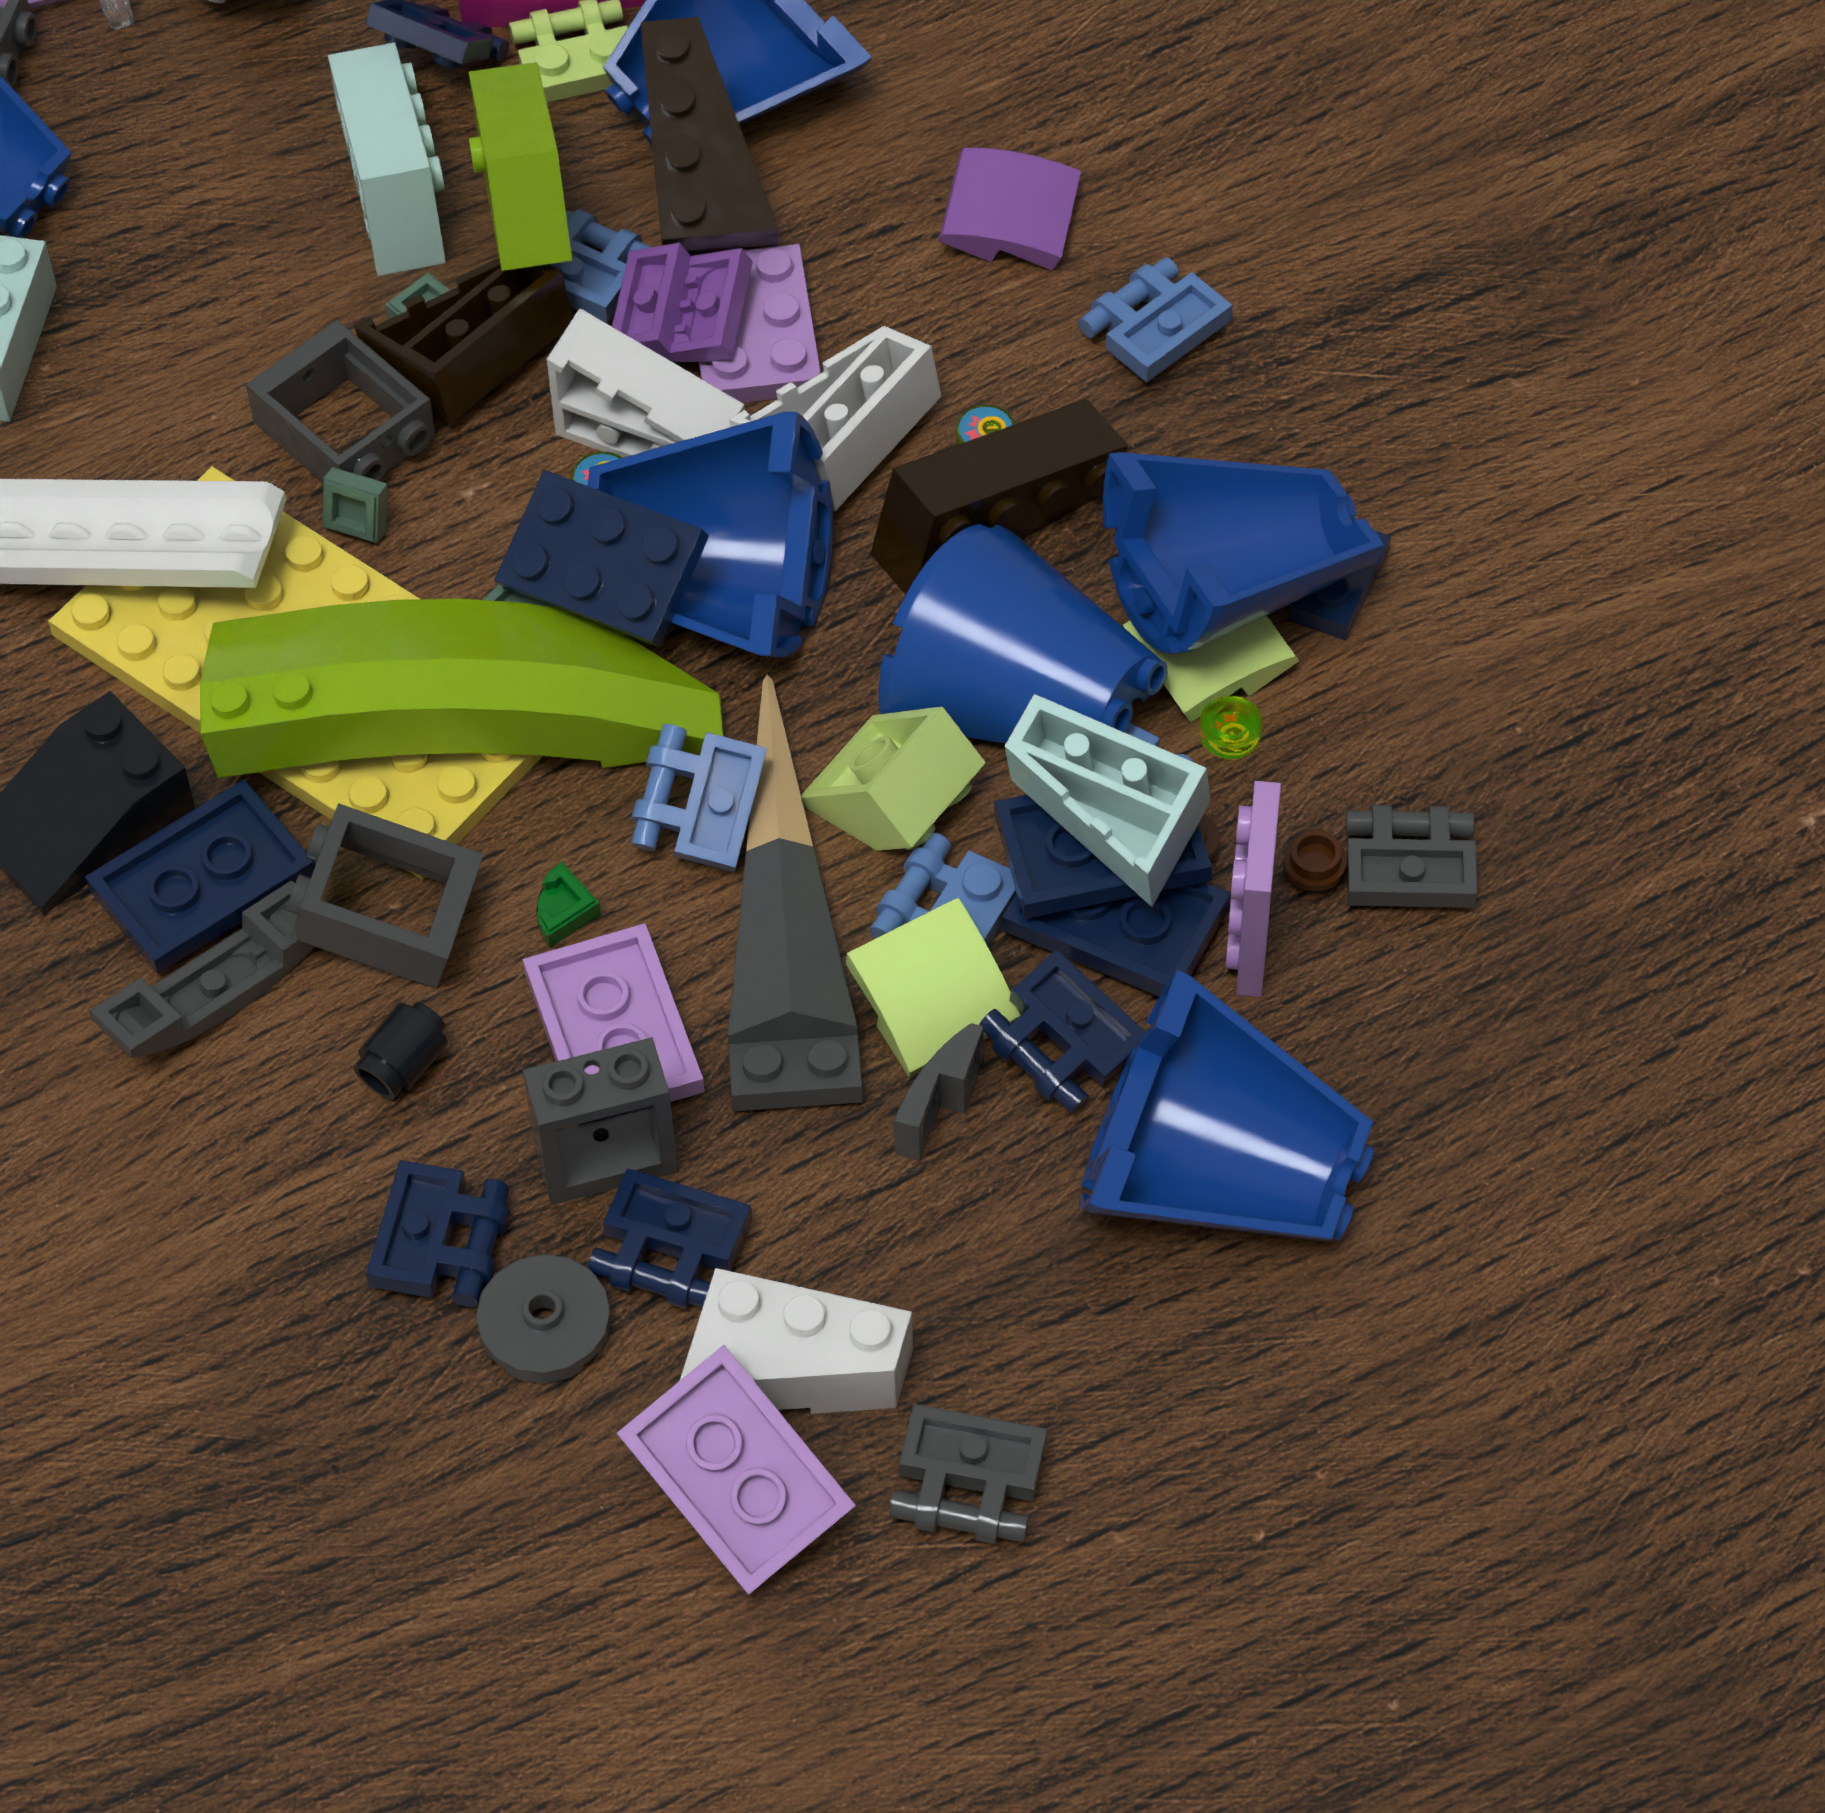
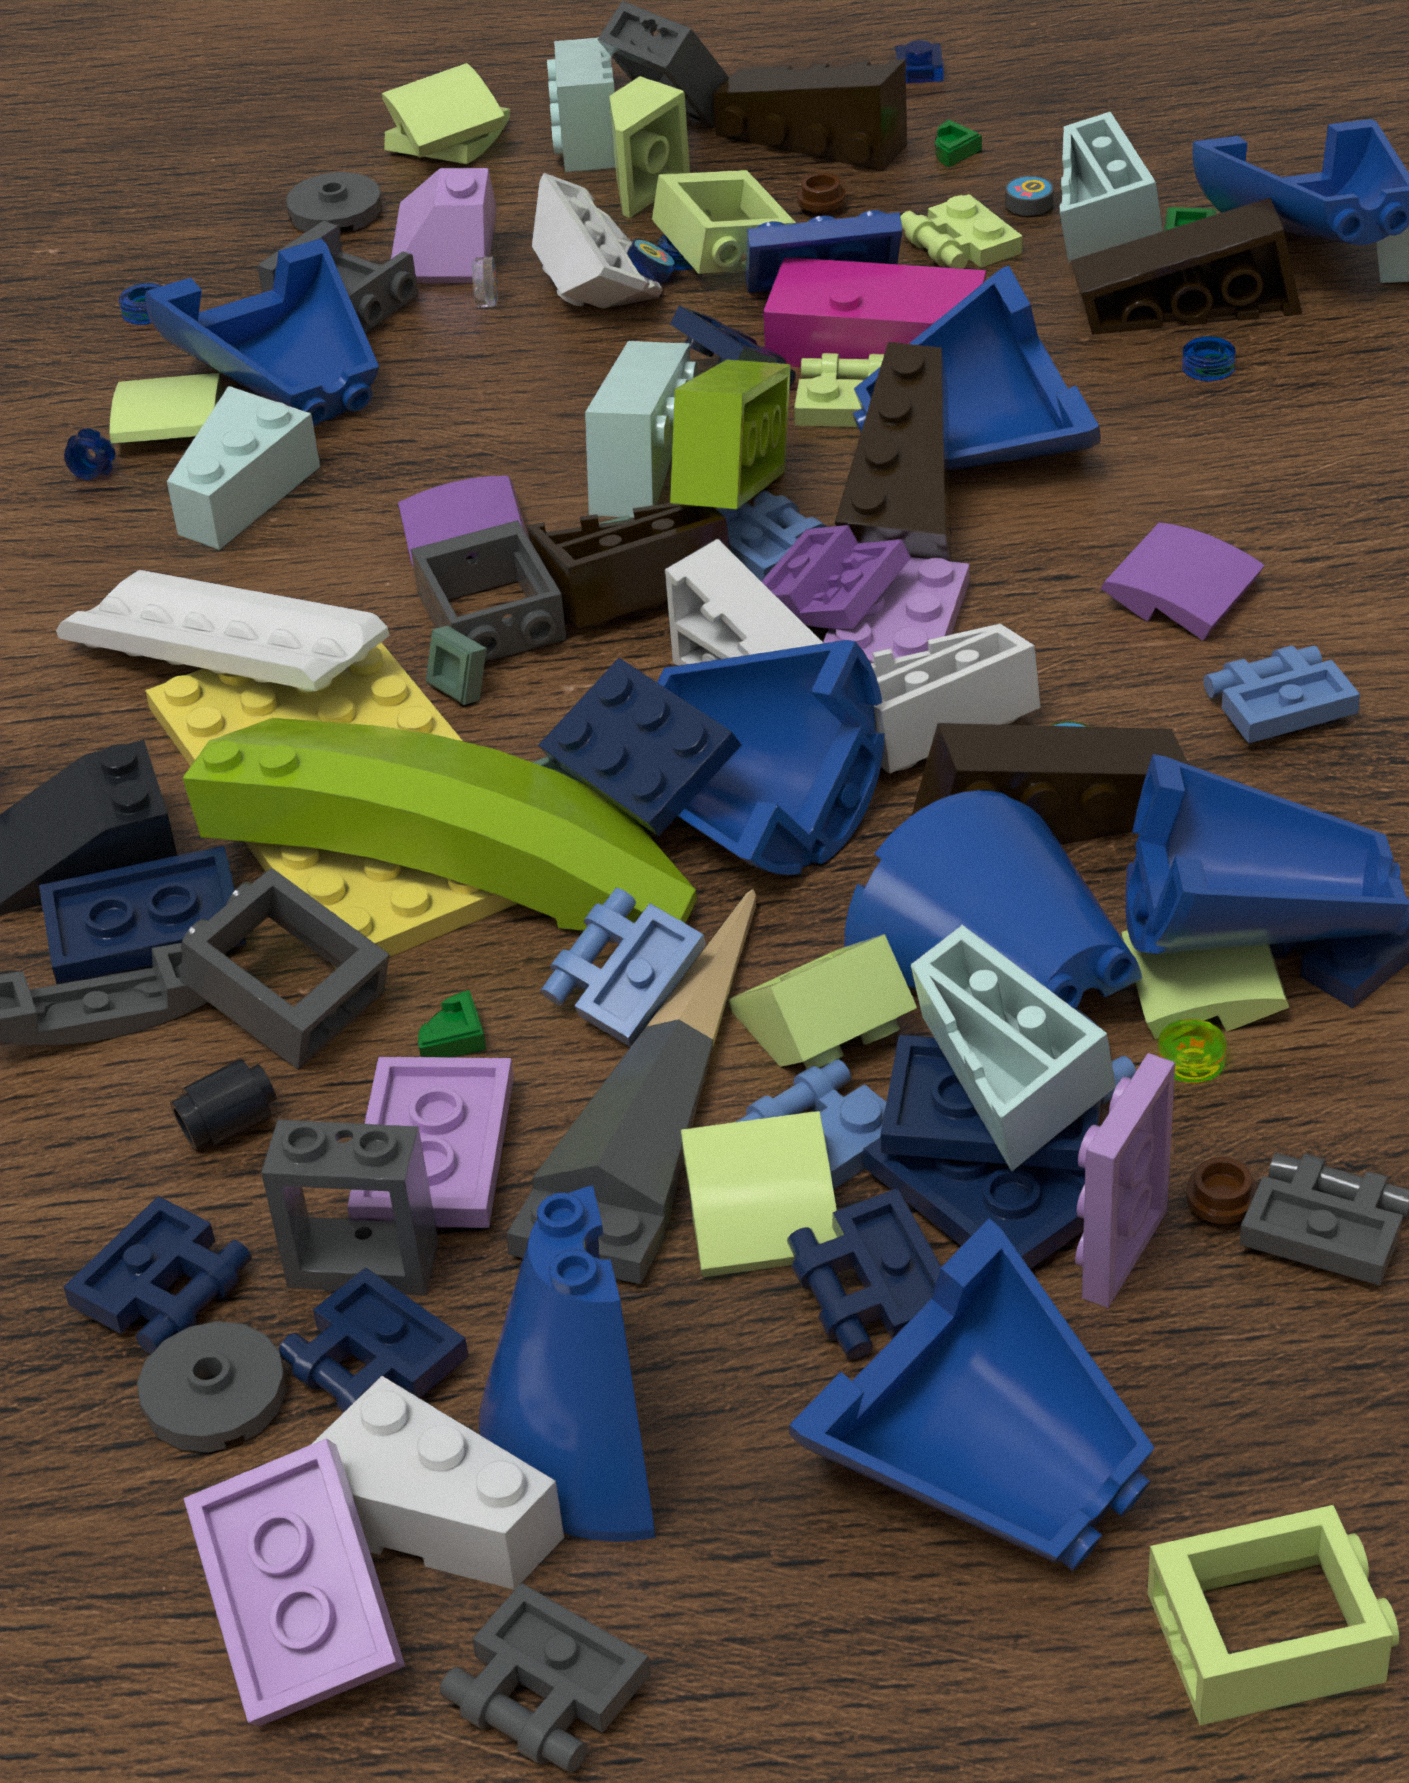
camera: 25 degrees right, 15 degrees down
(255, 321) = (459, 510): none -> medium lavender slope
(881, 1216) = (565, 1378): none -> blue cone
(944, 1083) = (724, 1281): dark grey slope -> none
(1463, 1271) = (1283, 1672): none -> yellowish green window

